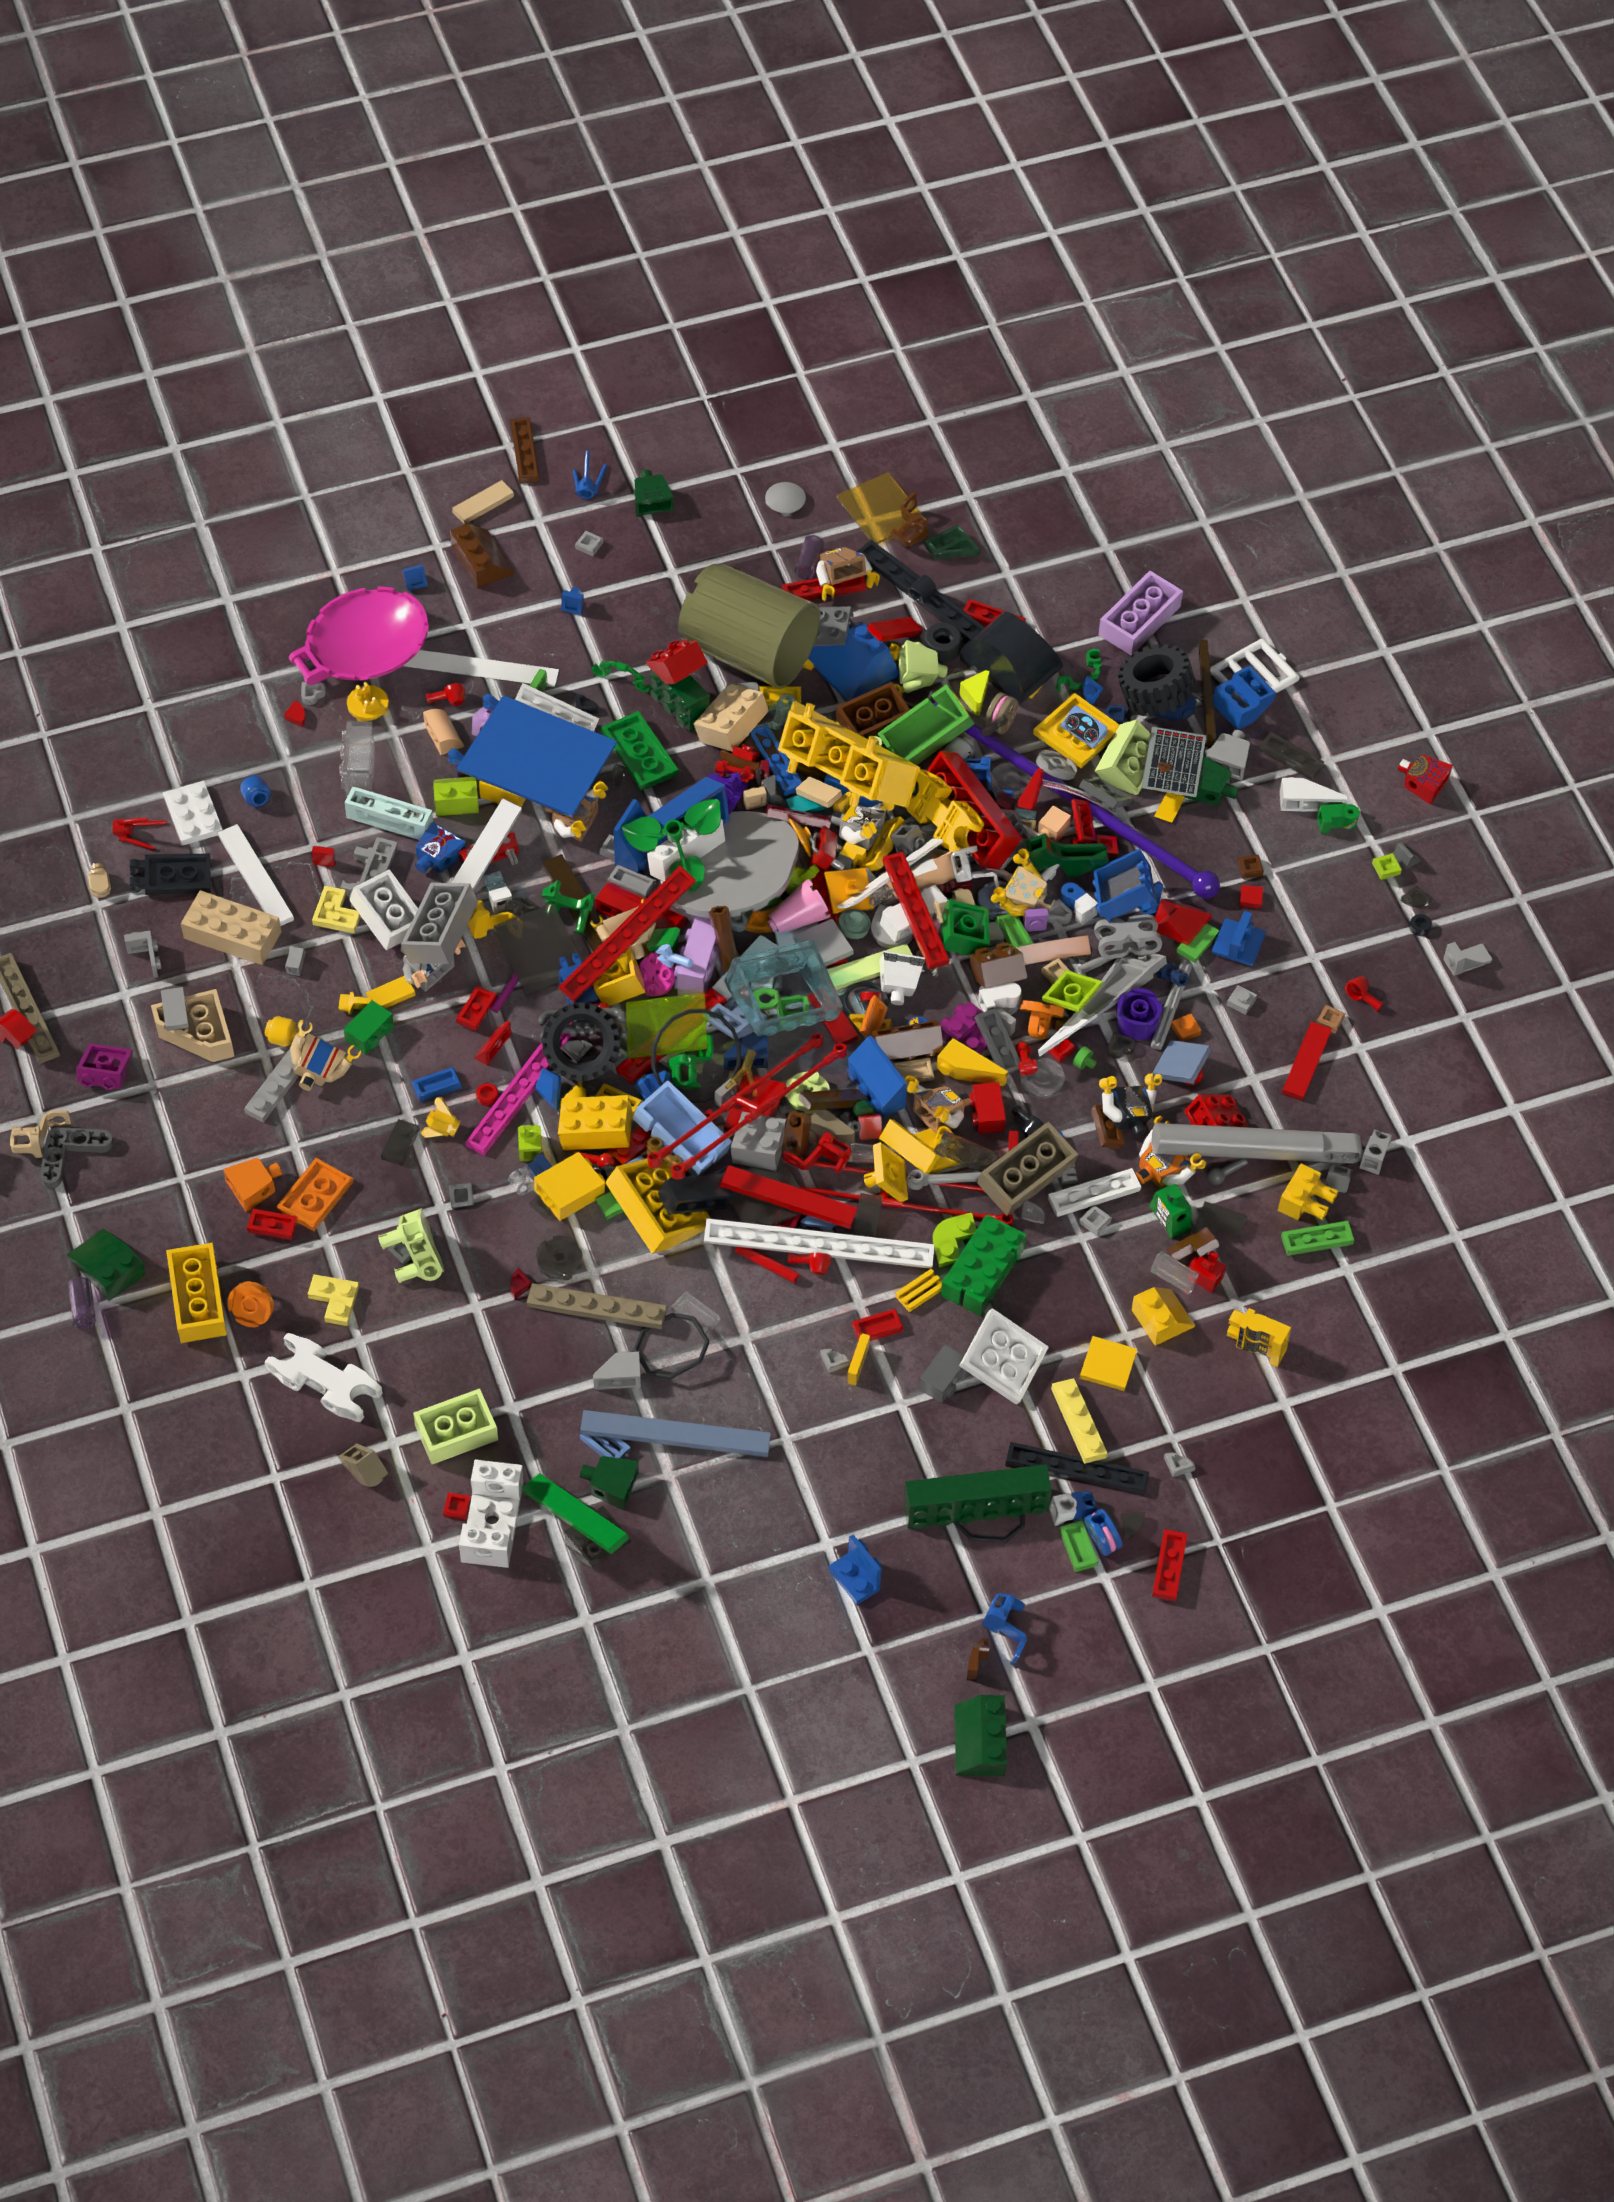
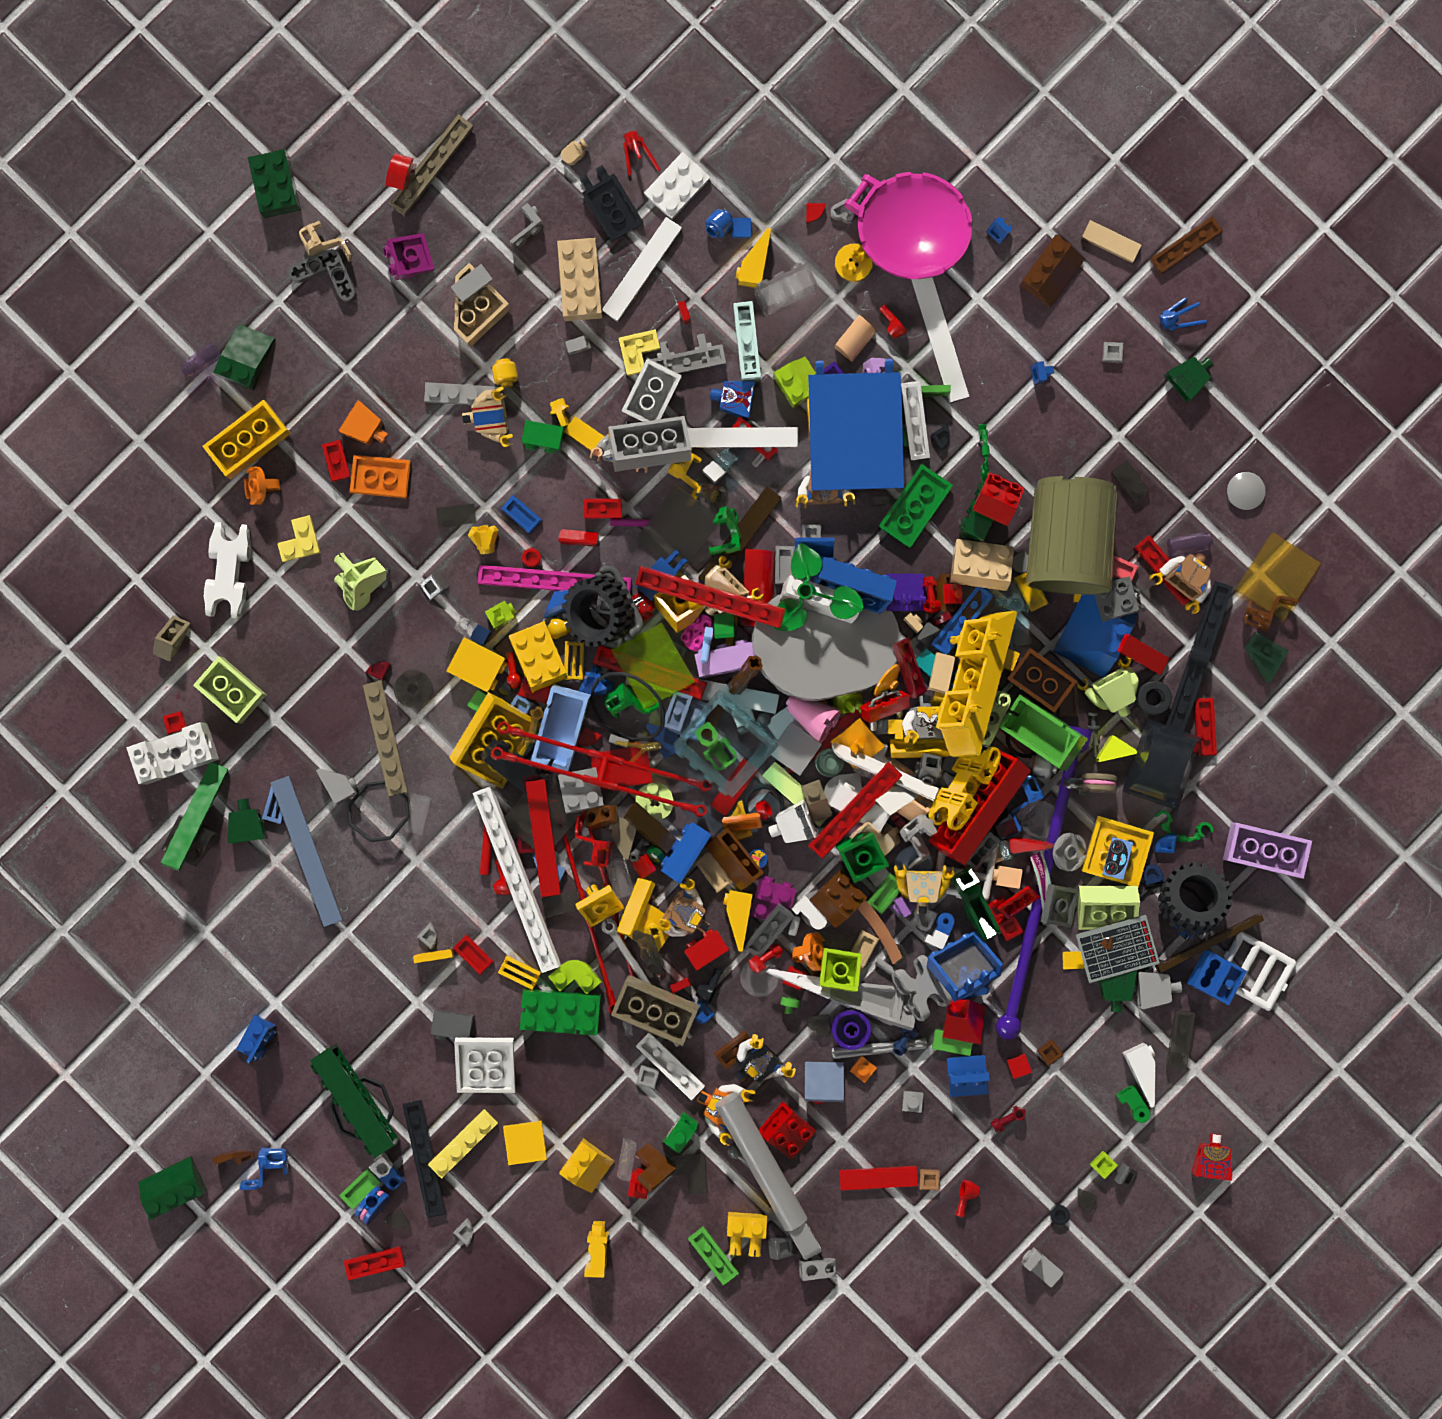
camera: 70 degrees right, 30 degrees up
(273, 777) = (741, 228): none -> blue tile
(317, 780) = (754, 263): none -> yellow slope
(894, 943) = (816, 800): none -> dark tan slope
(1298, 916) = (1017, 1114): none -> dark red bar

